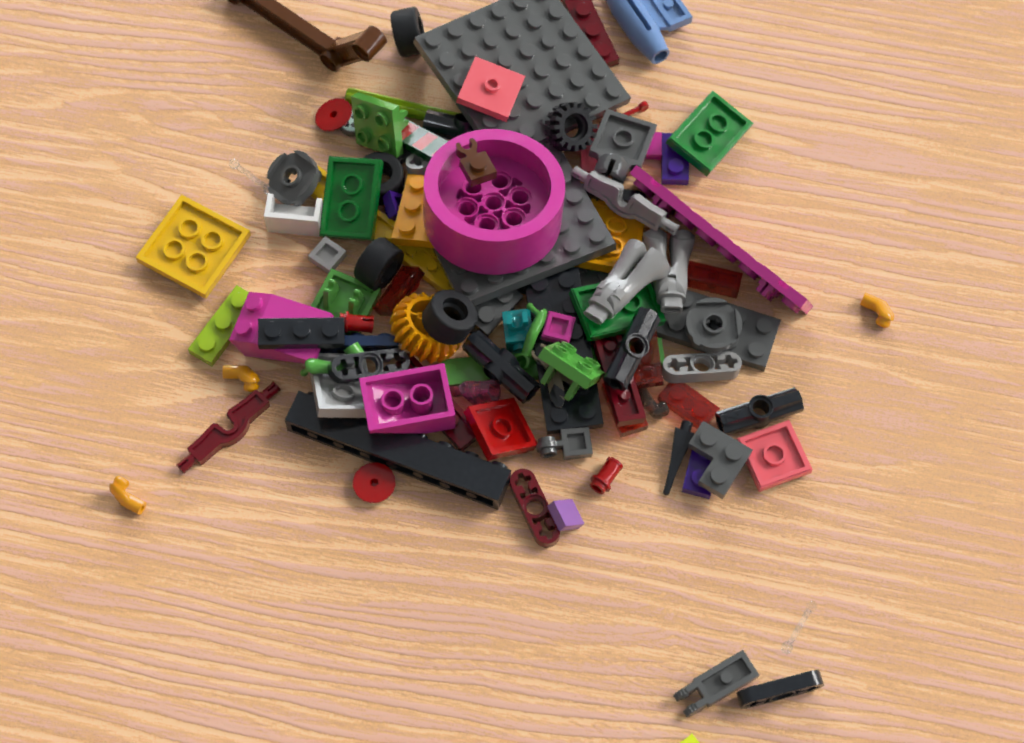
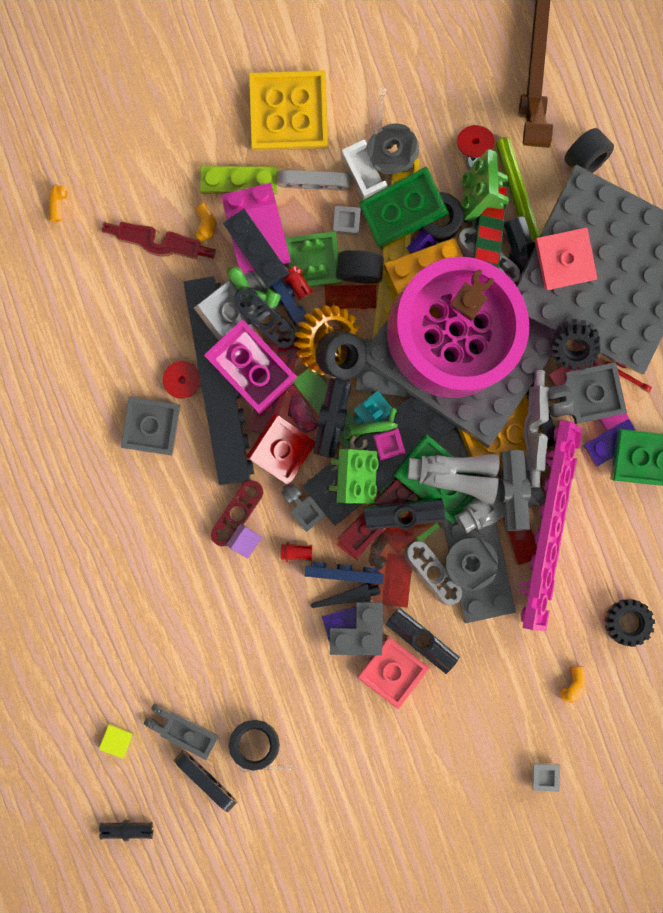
camera: 55 degrees right, 20 degrees up
(271, 261) = (313, 180): none -> light grey beam
(399, 536) = (150, 426): none -> dark grey plate
(653, 444) = (344, 573): none -> dark blue plate
(672, 245) = (514, 490): none -> dark grey piece
(779, 599) = (235, 740): none -> black tyre
(850, 219) = (645, 622): none -> black tyre
(951, 380) = (545, 777): none -> light grey plate

